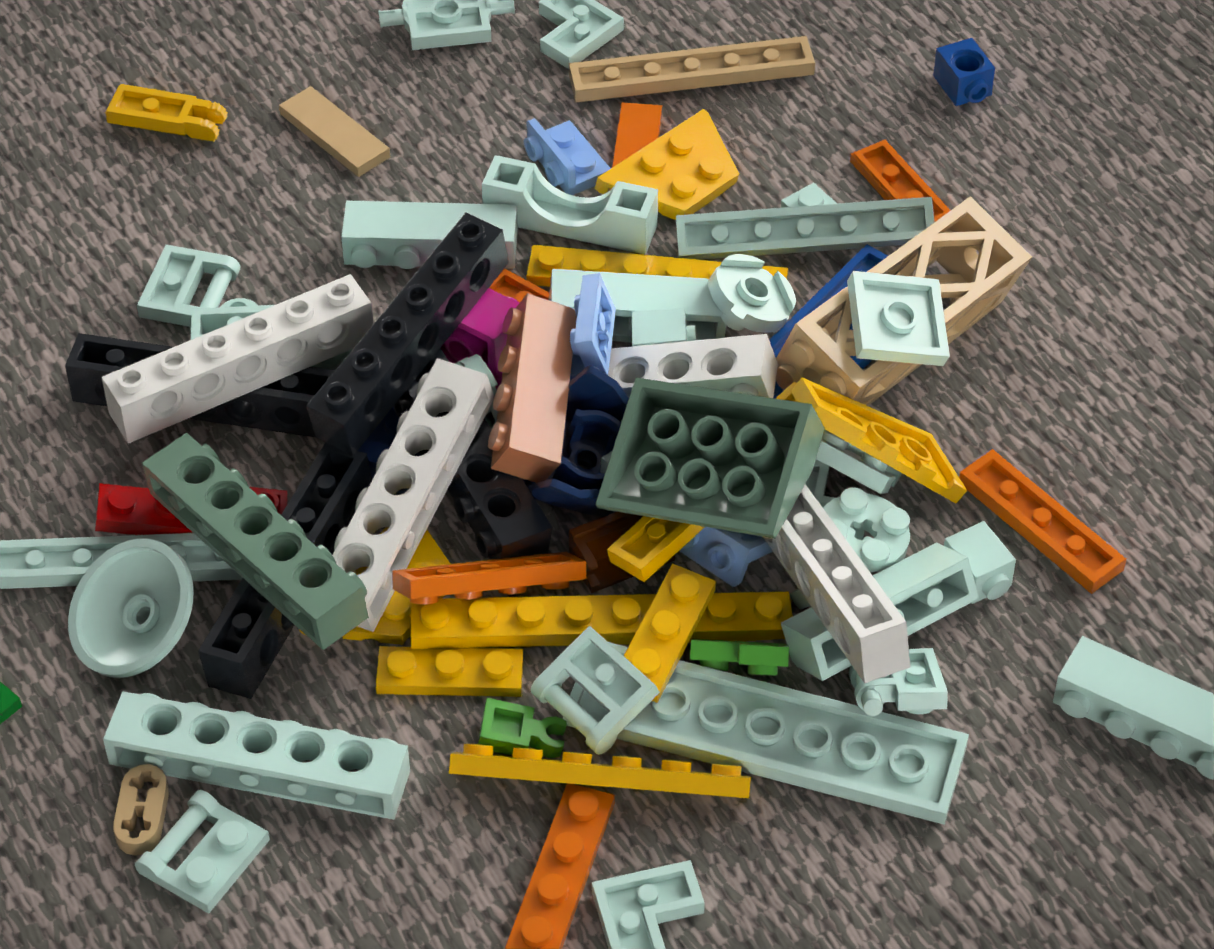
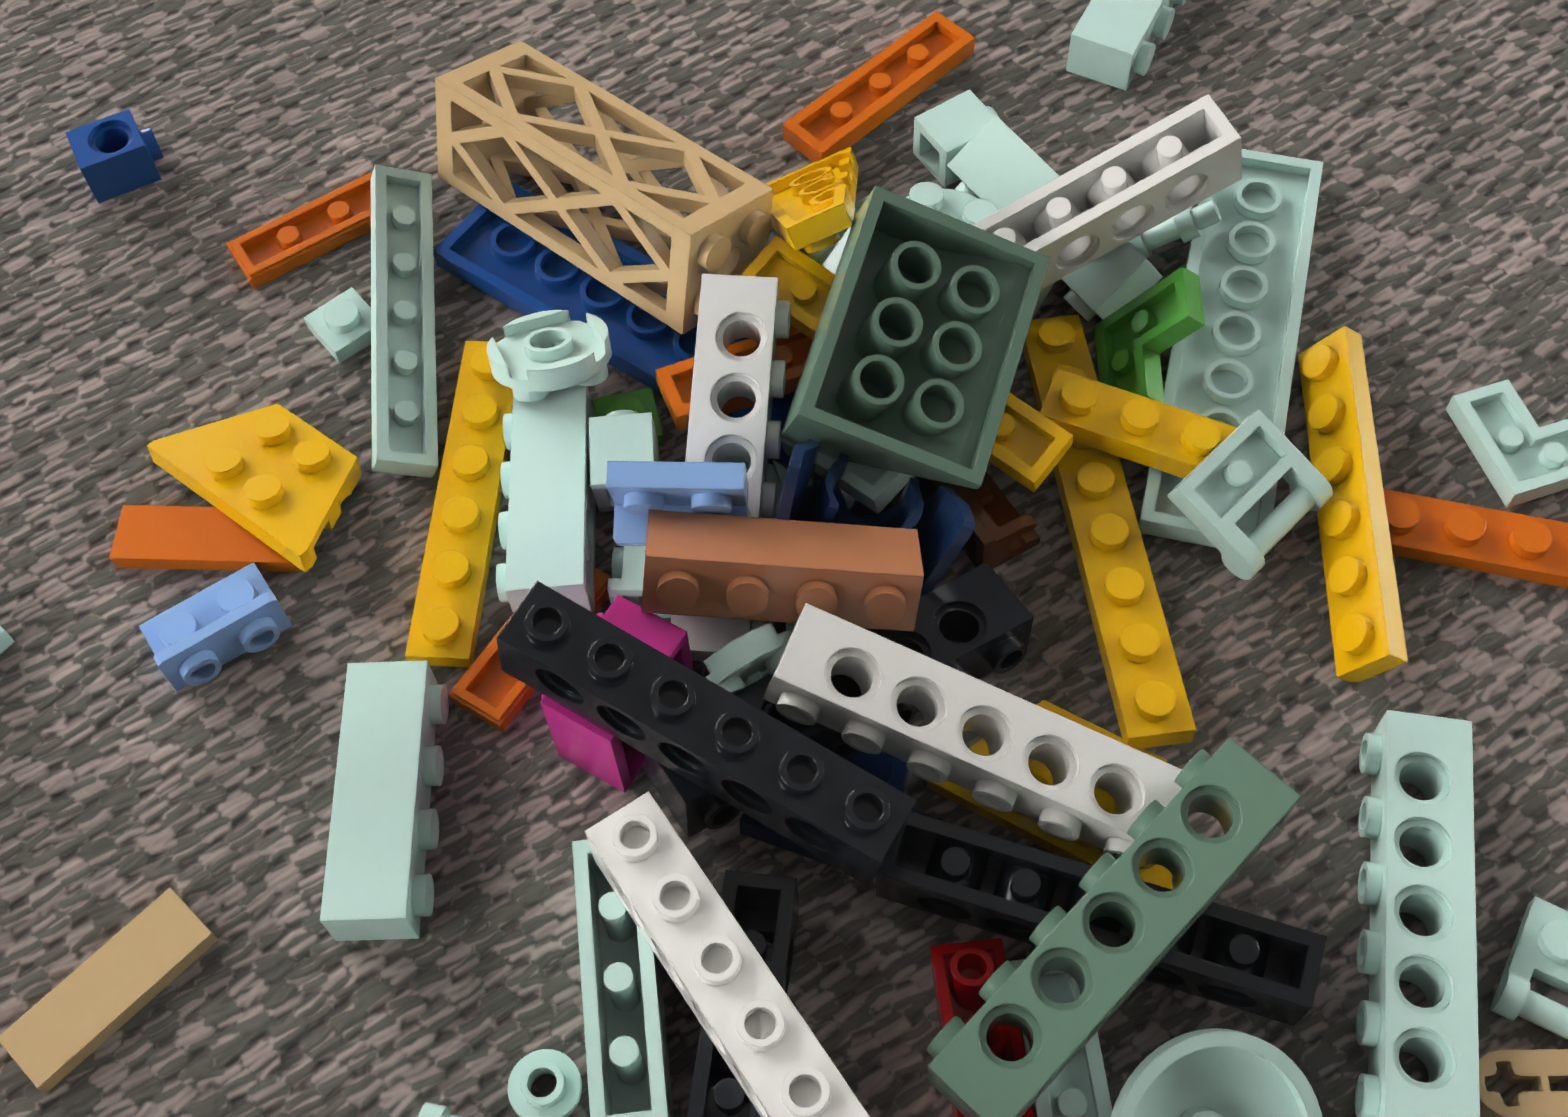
camera: 90 degrees left, 10 degrees up
(450, 671) = (1209, 675): yellow plate -> none
(472, 578) = (1083, 642): orange plate -> none
(513, 726) = (1293, 606): bright green plate -> none
(618, 219) = (367, 547): light aqua arch -> none
(691, 69) = (49, 480): tan plate -> none
(898, 318) = (671, 137): light aqua plate -> none

